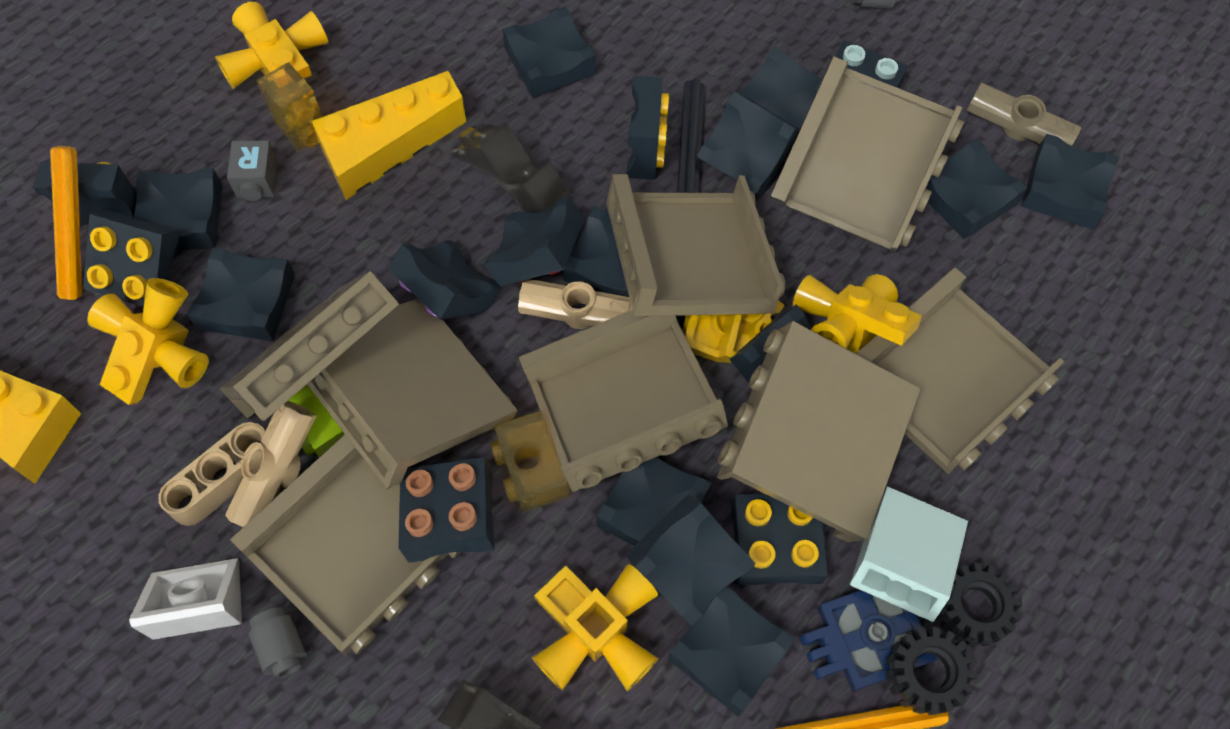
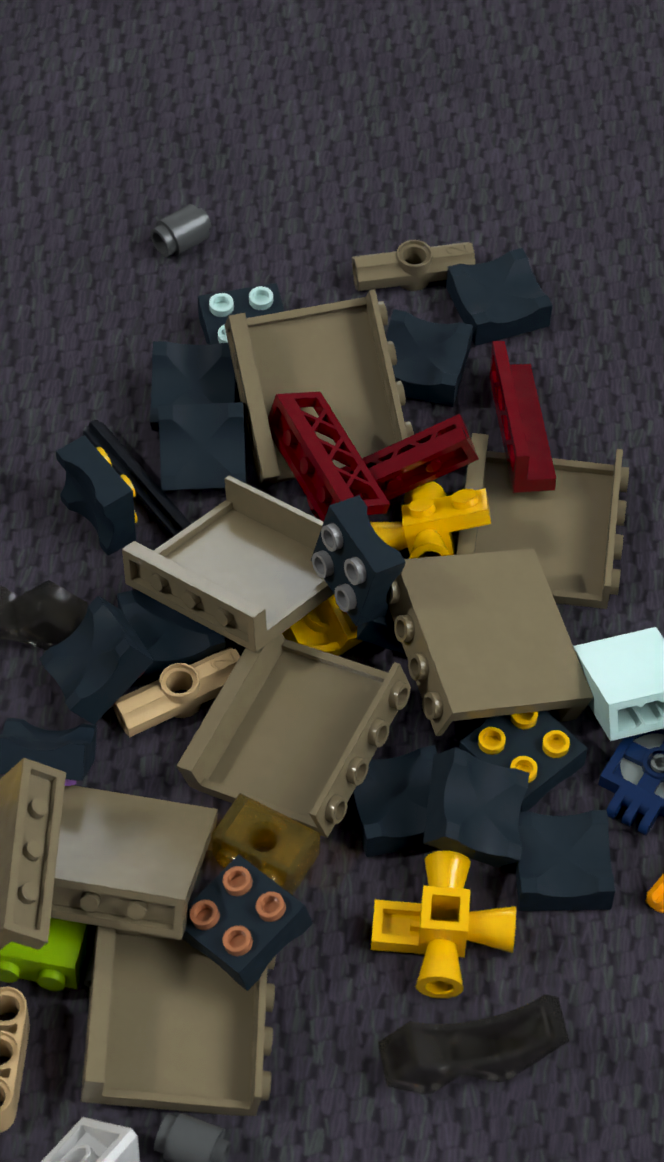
camera: 40 degrees left, 10 degrees down
(271, 463) = (52, 1035): tan piece -> none
(758, 299) = (355, 561): none -> black brick
(814, 202) = (313, 458): none -> dark red fence
(869, 254) = (419, 458): none -> dark red fence
(1002, 288) = (521, 423): none -> dark red fence

